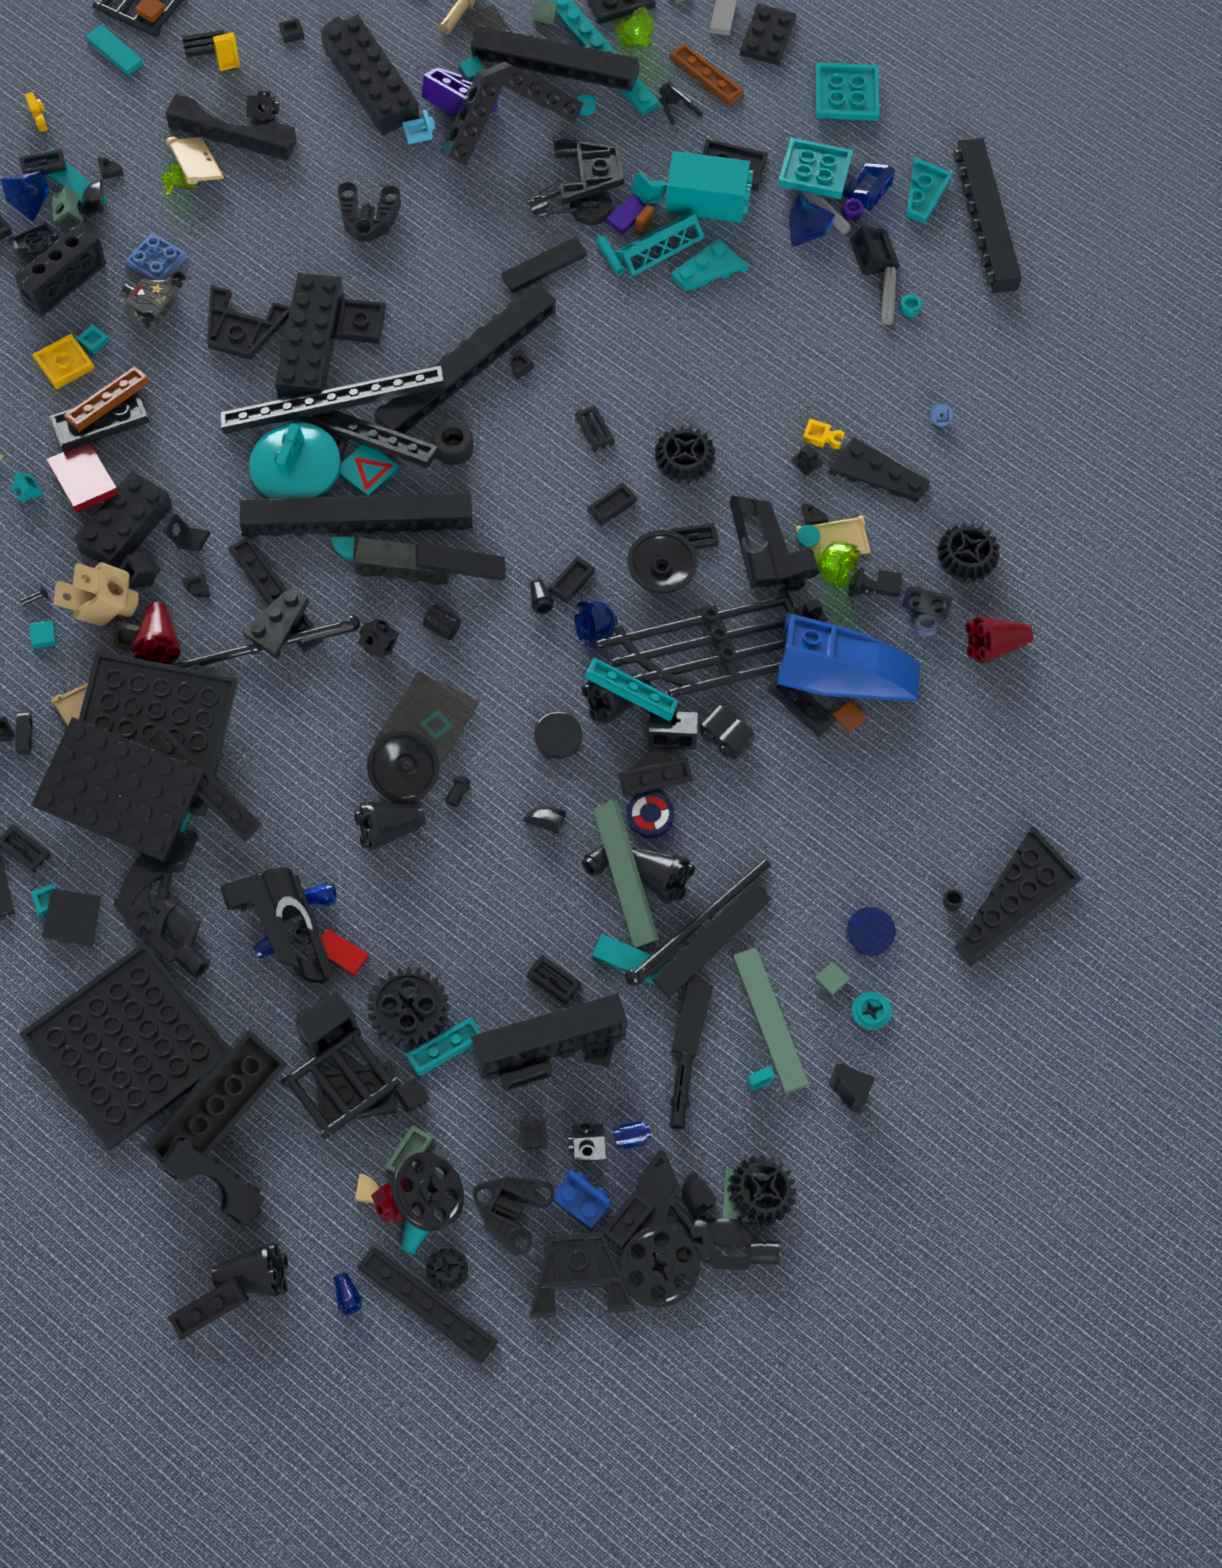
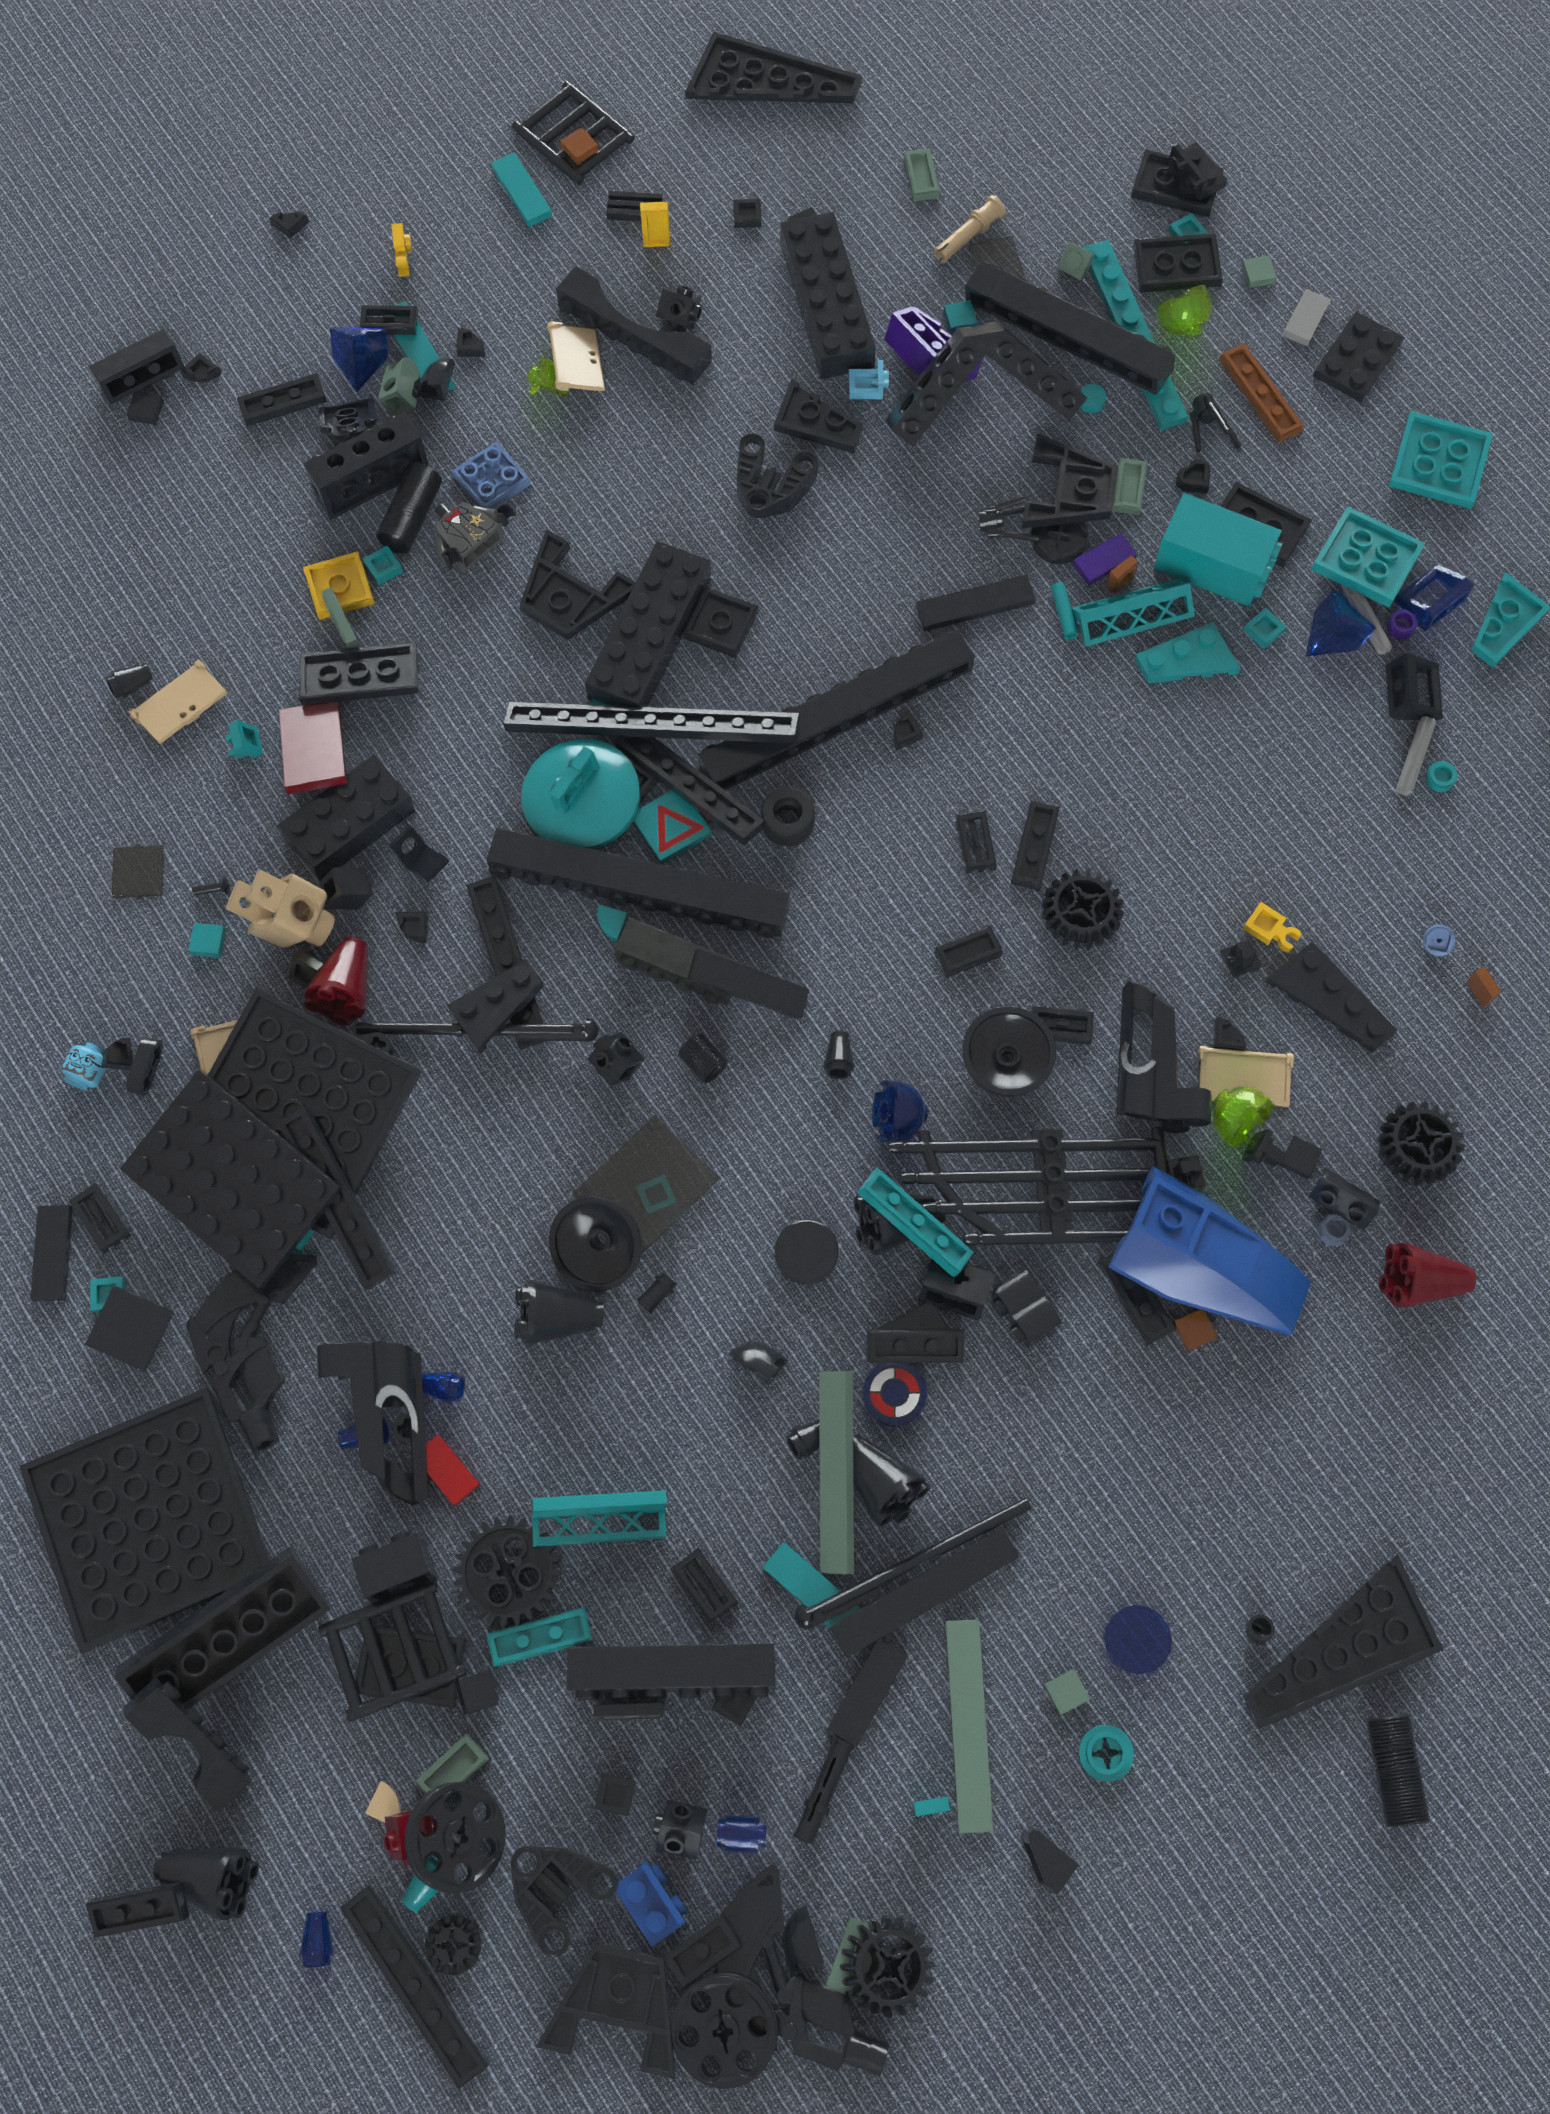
camera: 20 degrees right, 5 degrees up
(72, 381) = (339, 619): none -> sand green tile
(101, 293) = (411, 504): none -> black piece
(106, 399) = (374, 649): dark orange tile -> none
(383, 164) = (813, 420): none -> black wing
(463, 942) = (595, 1506): none -> teal fence
(571, 580) = (886, 1042): black tile -> none
(631, 158) = (1129, 486): none -> sand green tile
(637, 420) = (1035, 845): none -> black tile
(648, 191) = (1139, 537): teal panel -> none
(676, 142) = (1195, 477): none -> black tile
(757, 234) = (1264, 628): none -> teal tile
(808, 536) = (1211, 1065): teal tile -> none
(981, 437) = (1483, 986): none -> dark orange tile
(1077, 968) = (1398, 1771): none -> black piece

